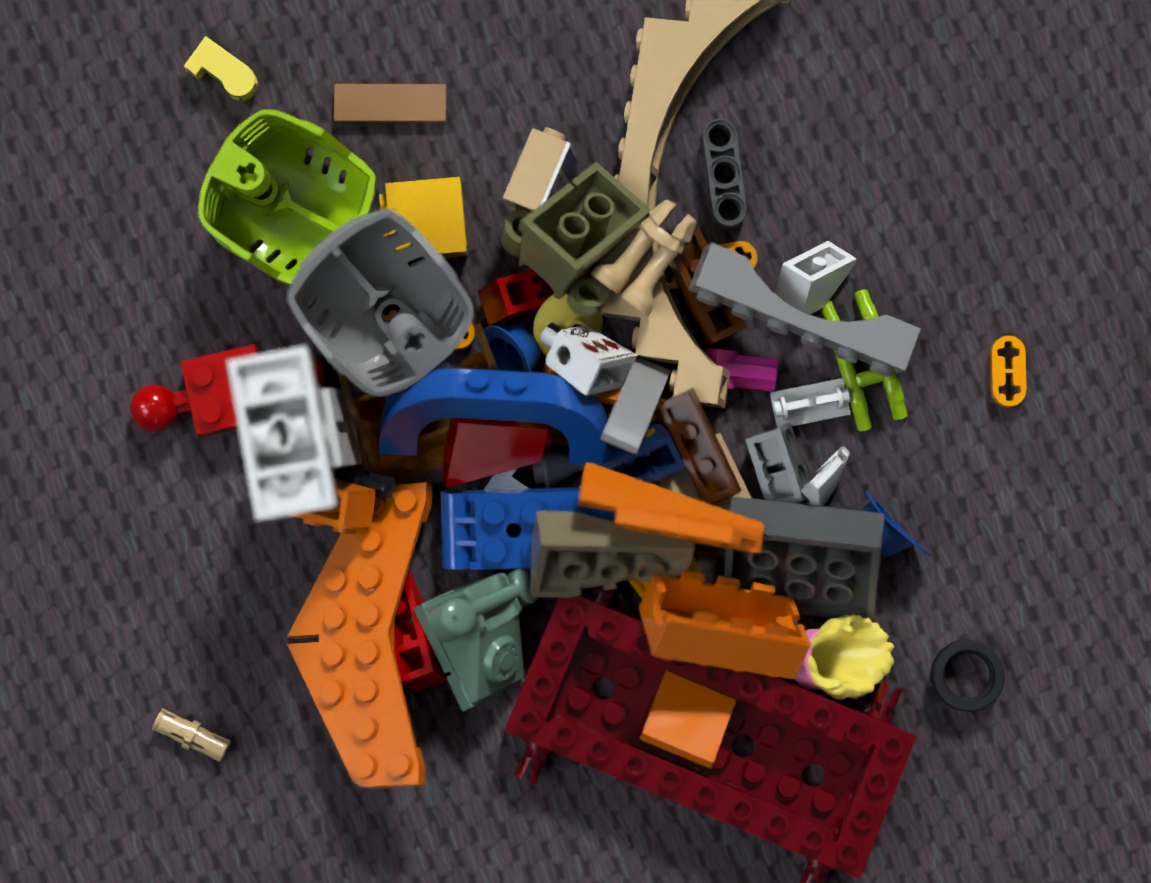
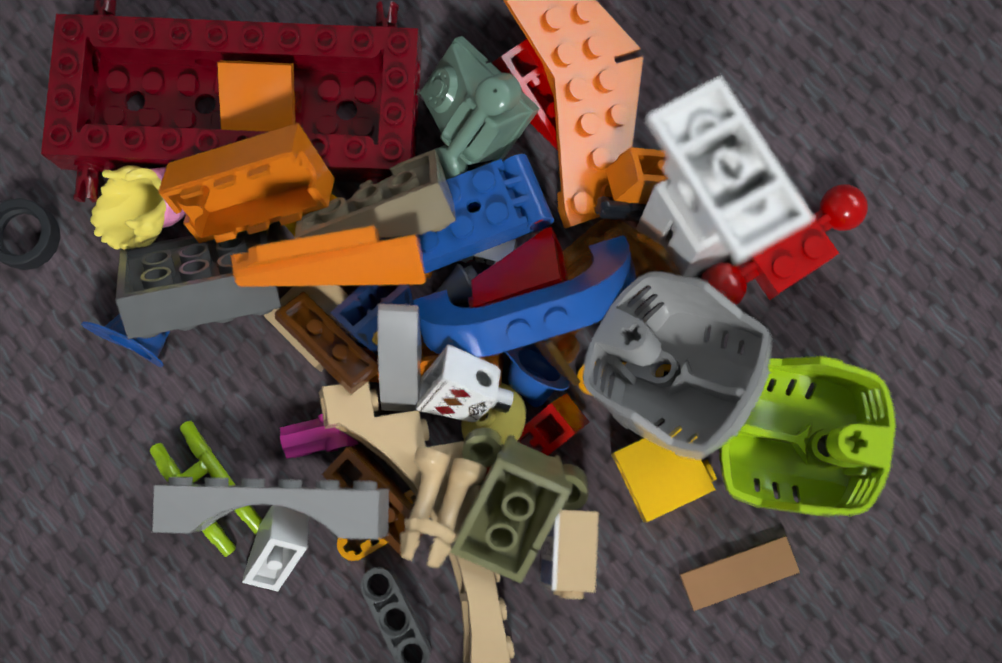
camera: 165 degrees right, 5 degrees down
(221, 65) = (897, 544): light yellow leg -> none
(778, 464) = (250, 357): dark grey brick -> none
(811, 403) = (243, 430): white hinge -> none
(826, 478) = (199, 371): white brick -> none
(1017, 371) = (58, 529): light orange beam -> none

